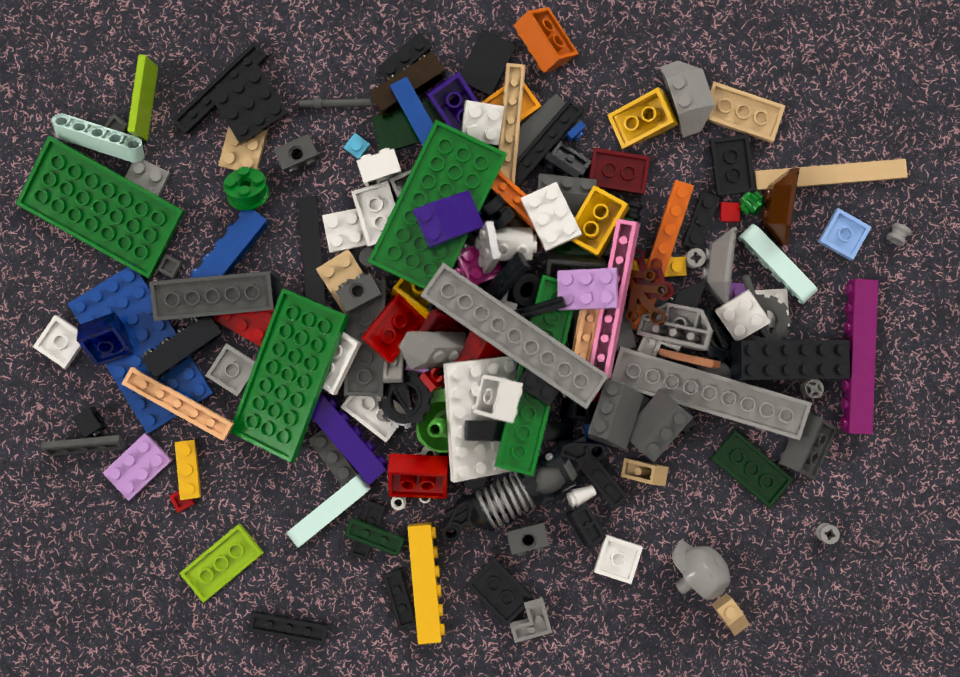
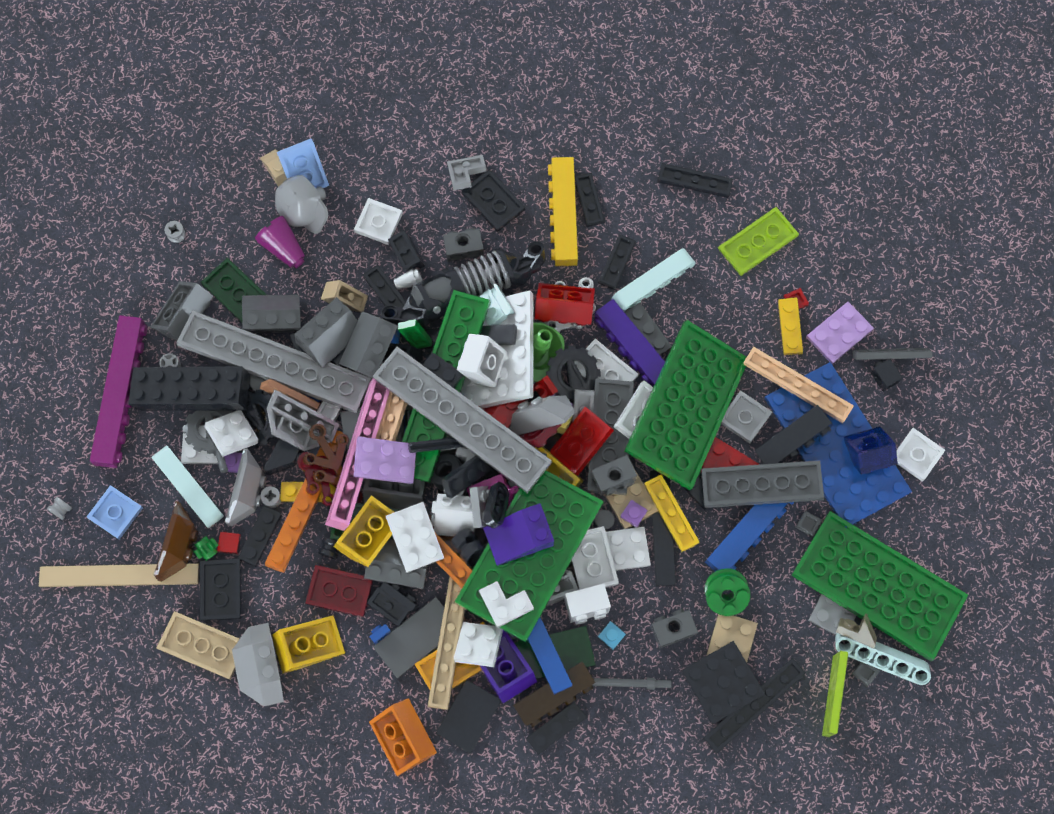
camera: 170 degrees left, 15 degrees down
(119, 156) = (862, 634): none -> slope
(302, 264) = (671, 513): none -> yellow plate
(339, 261) = (633, 513): none -> medium lavender plate
(374, 536) = (610, 254): dark green tile -> none
(458, 147) = (504, 609): none -> white plate
(472, 246) = (496, 505): none -> black plate
(484, 463) = (499, 306): none -> light aqua plate
(547, 140) = (411, 626): black tile -> none
(569, 430) = (415, 334): none -> green plate
(704, 615) = (303, 160): none -> light blue plate
(715, 526) = (281, 242): none -> magenta cone
(718, 448) = (271, 313): none -> dark grey slope

